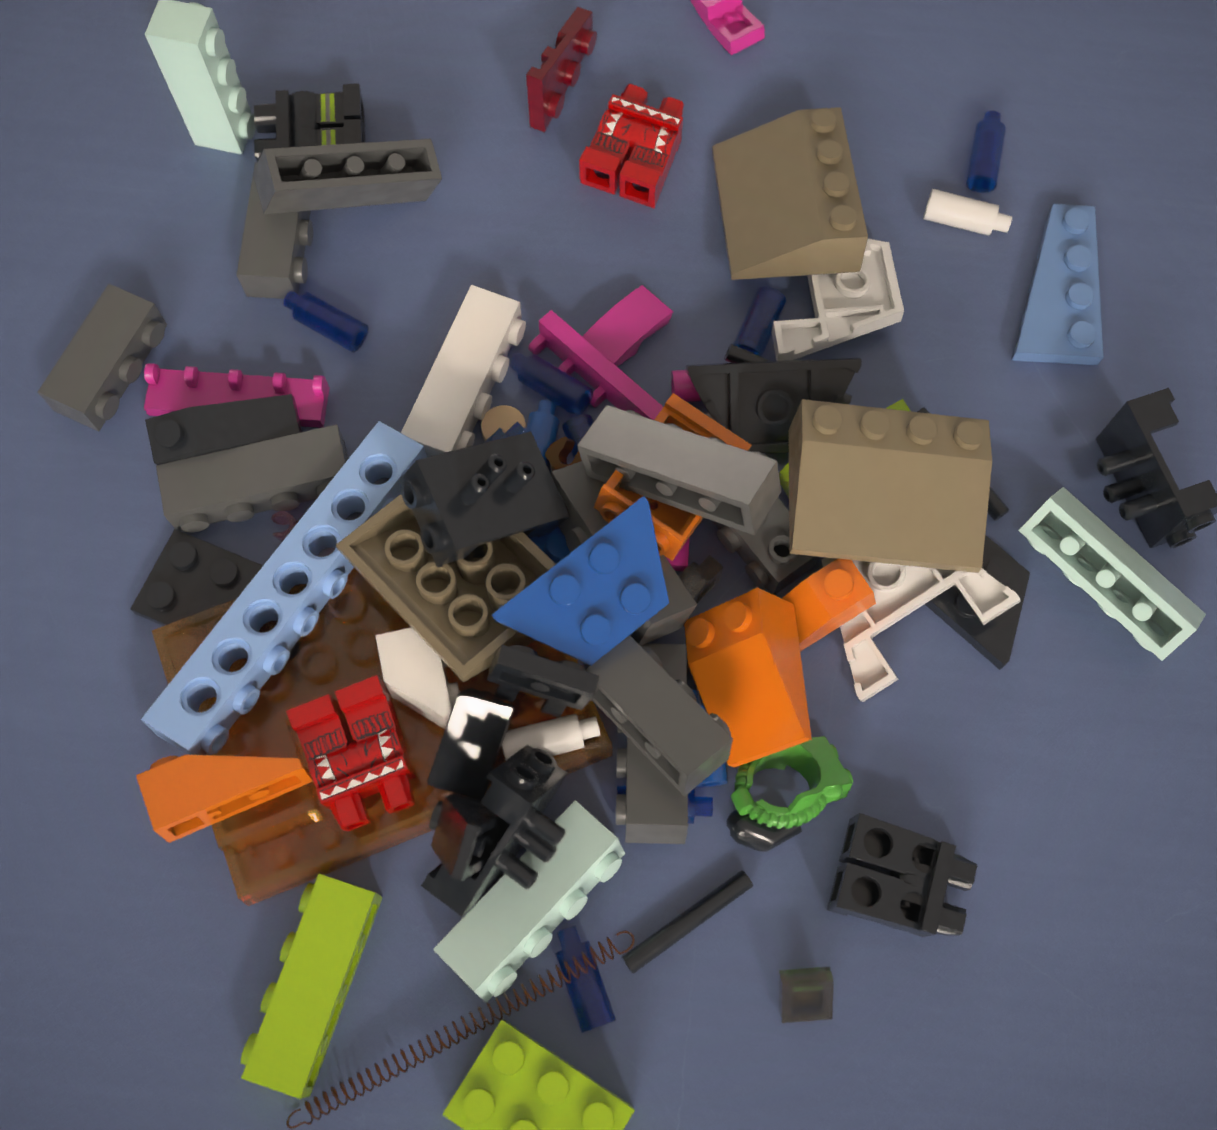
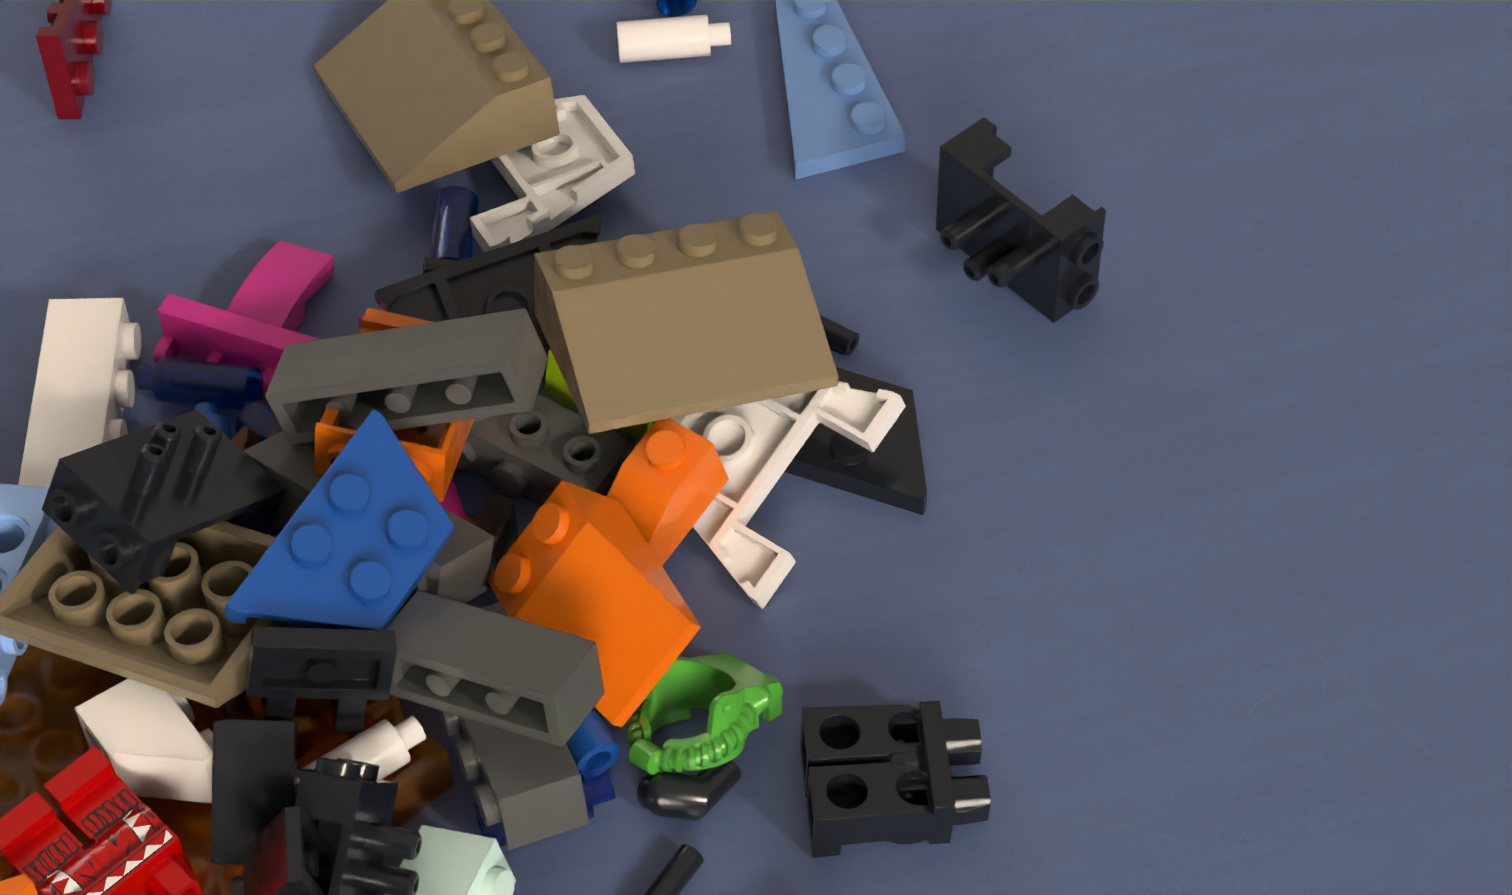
camera: 20 degrees left, 20 degrees down
(634, 146) = (208, 88): red hips -> none
(1112, 574) = (1010, 350): light aqua brick -> none

